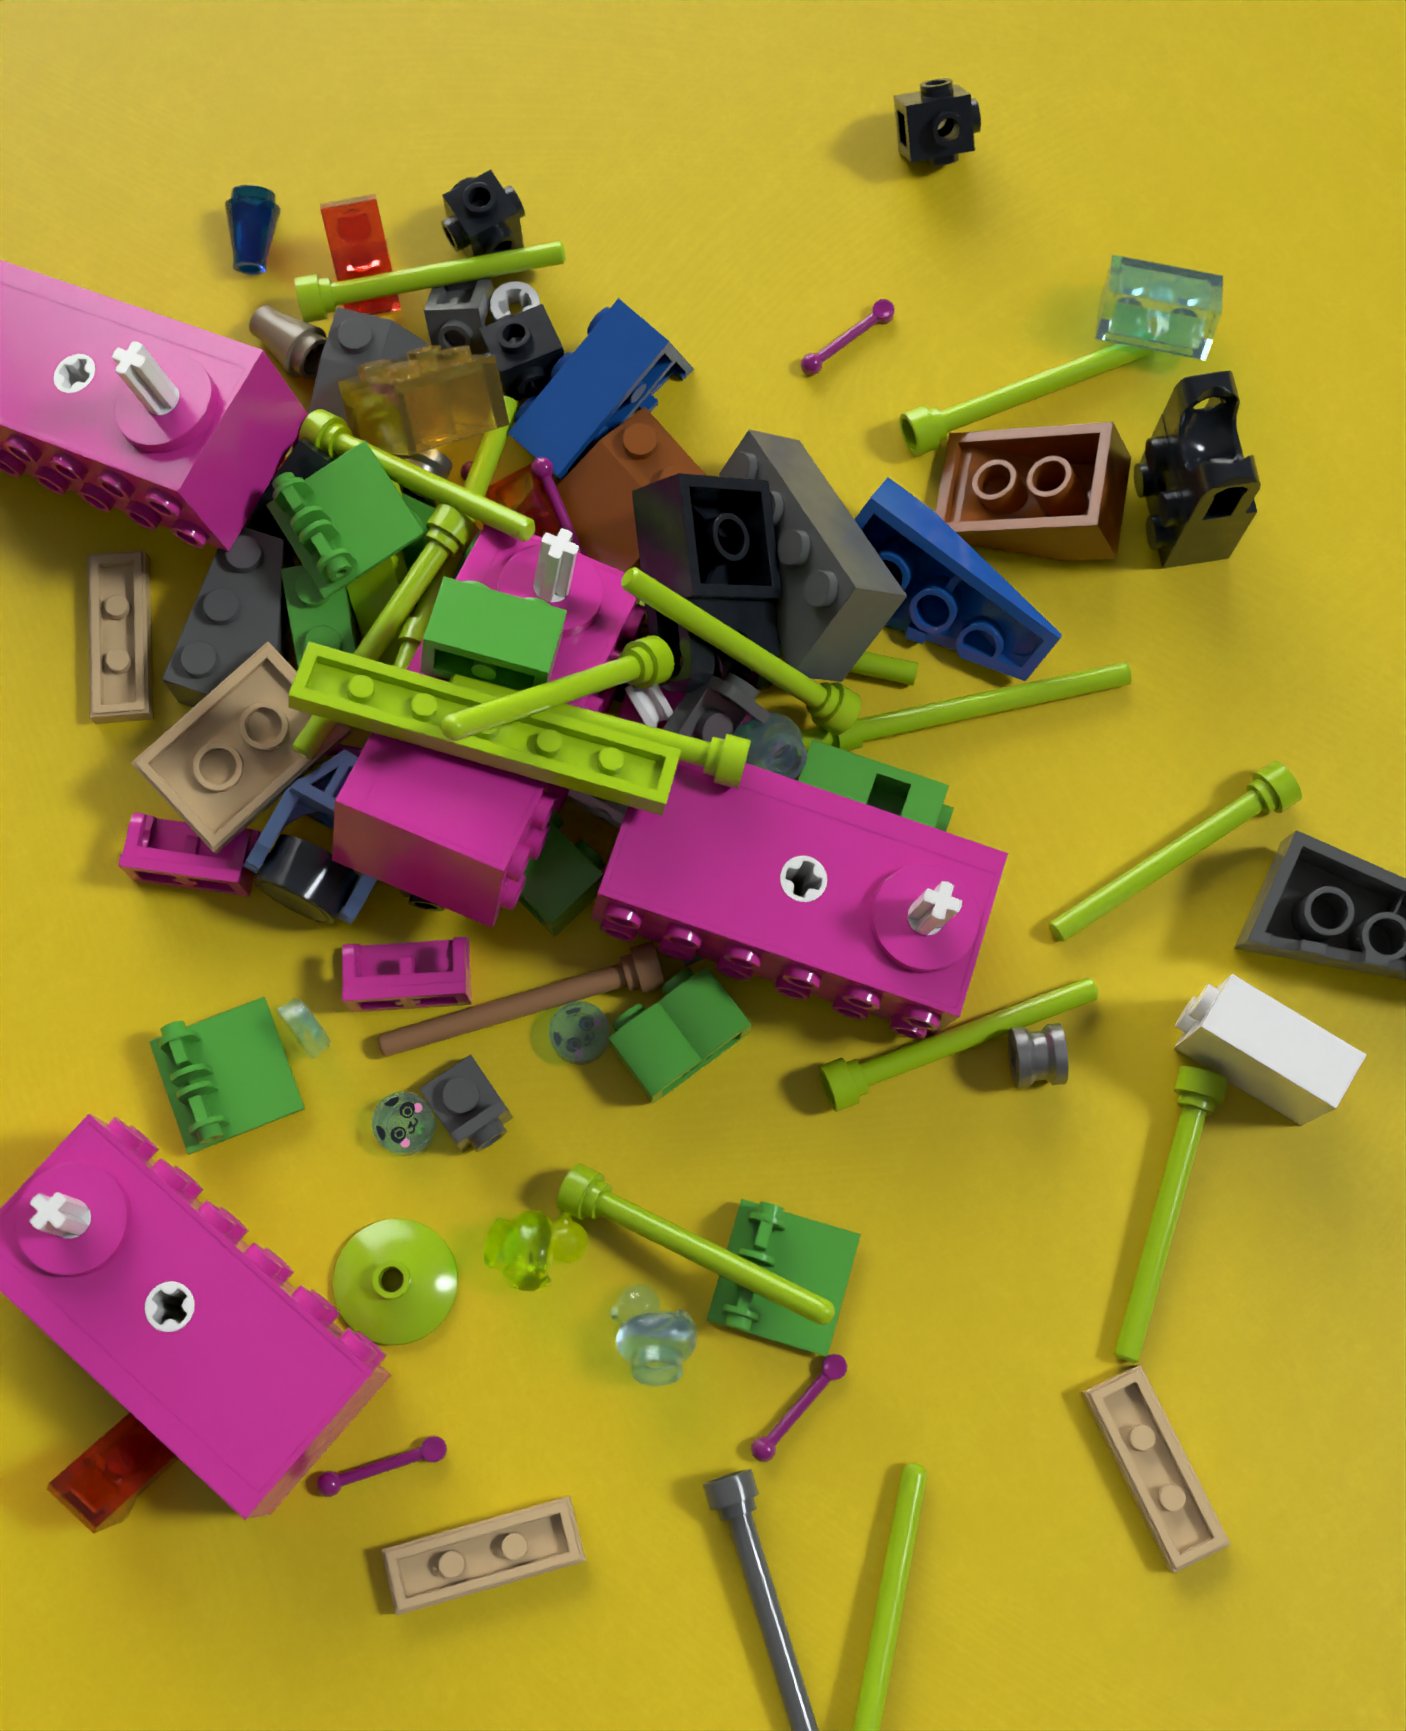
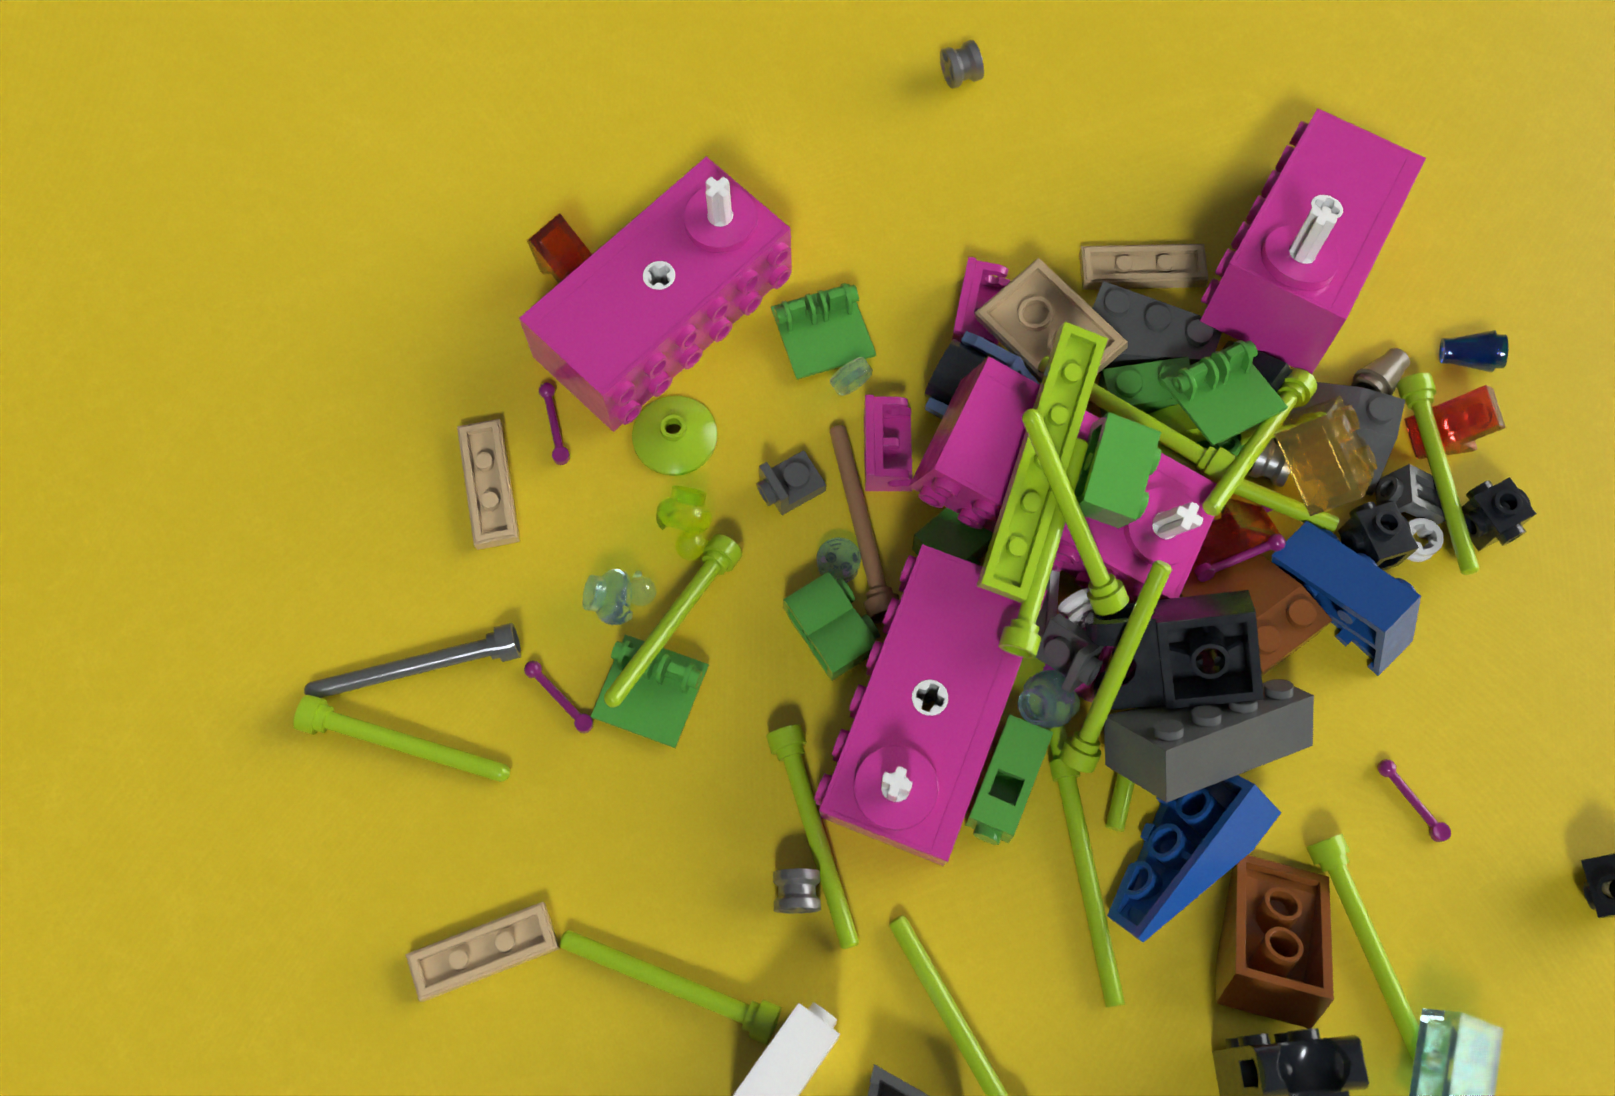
camera: 95 degrees right, 5 degrees down
(404, 1123) = (780, 440): clear light blue tile -> none

